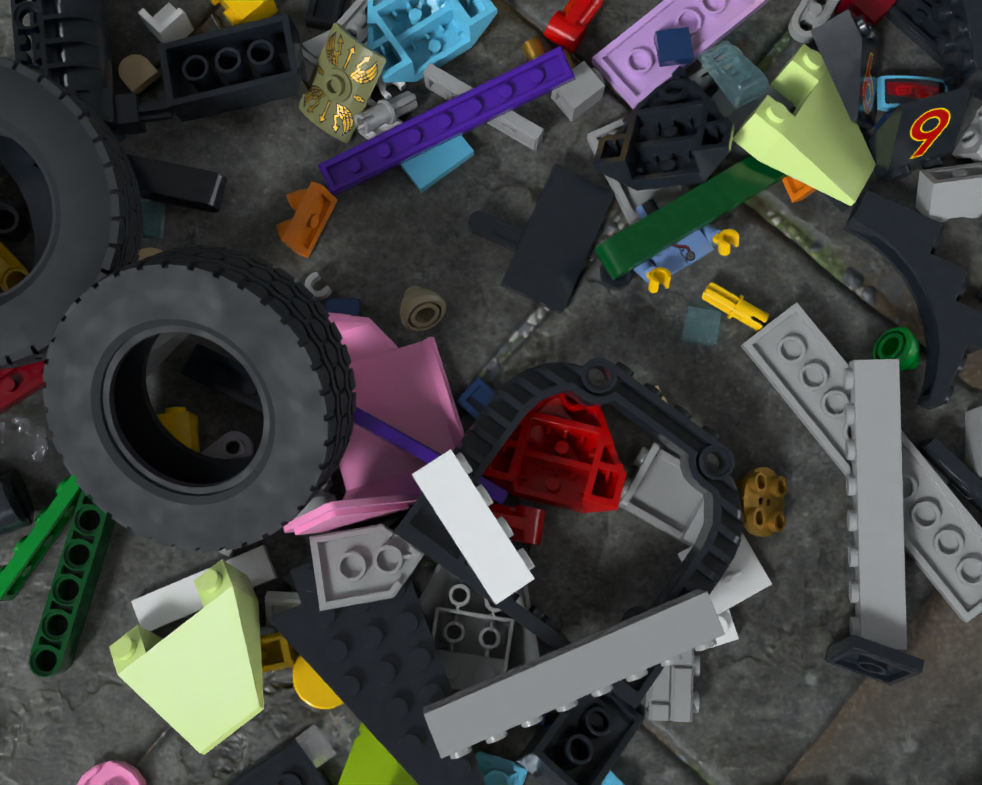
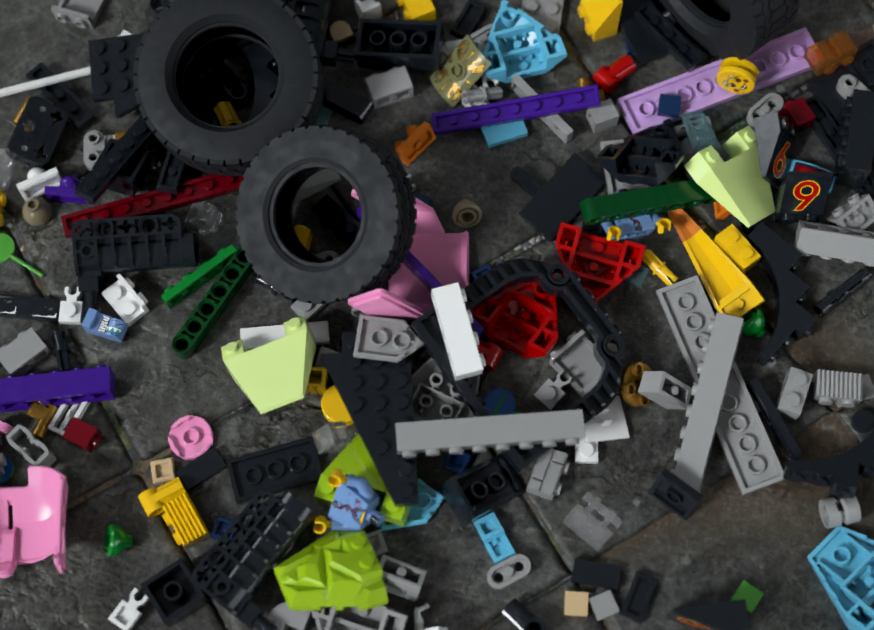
camera: 20 degrees right, 10 degrees down
(240, 140) = (389, 87): none -> light grey brick
(565, 595) = (500, 403): none -> blue piece
(637, 551) = (551, 393): none -> light grey plate
(641, 327) = (596, 260): none -> red wedge
(753, 743) = (587, 526): none -> clear plate
(807, 501) = (665, 390): none -> light grey brick
(841, 245) = (737, 248): none -> yellow brick
(842, 302) = (723, 280): none -> yellow plate

